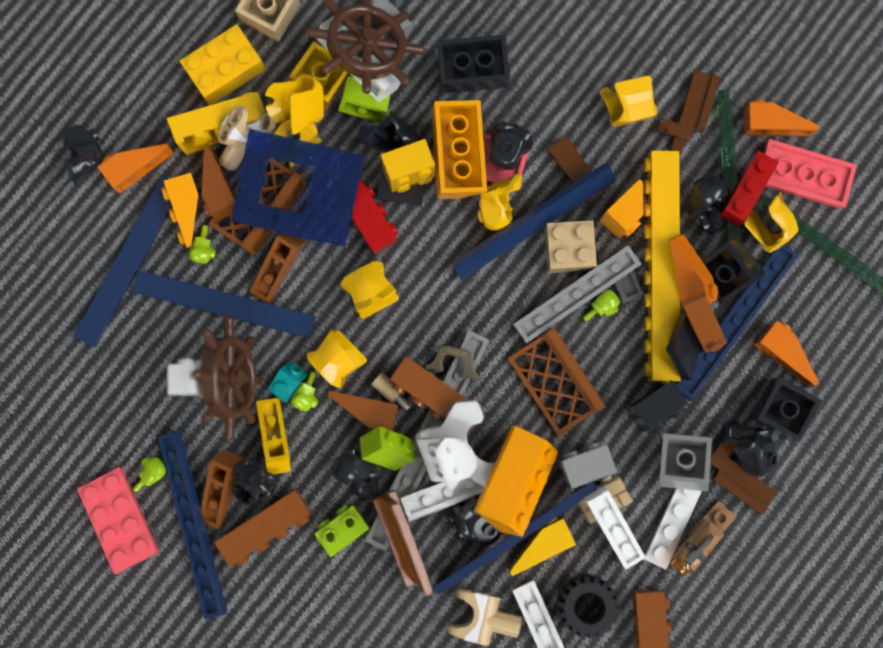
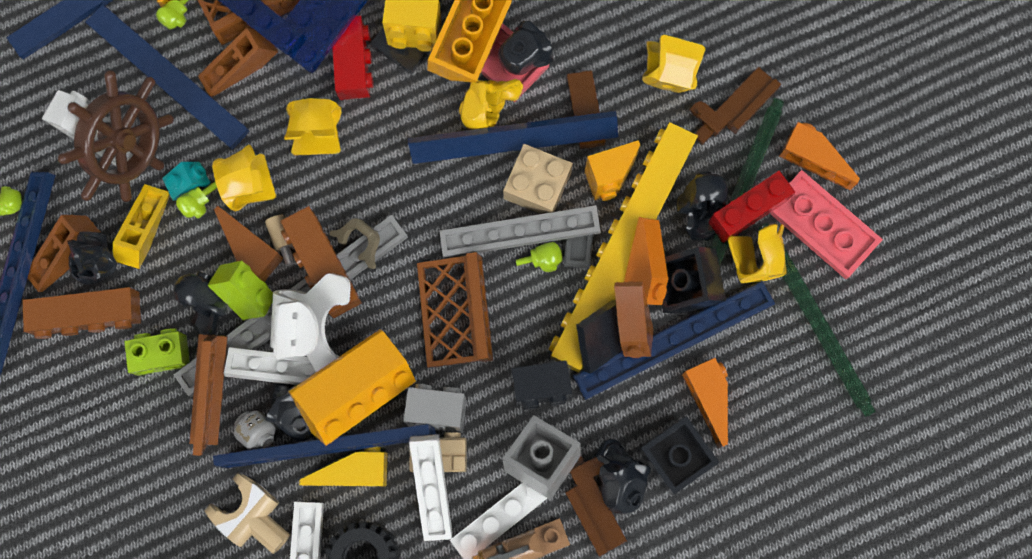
camera: 30 degrees right, 5 degrees down
(453, 552) = (253, 430): none -> light grey head

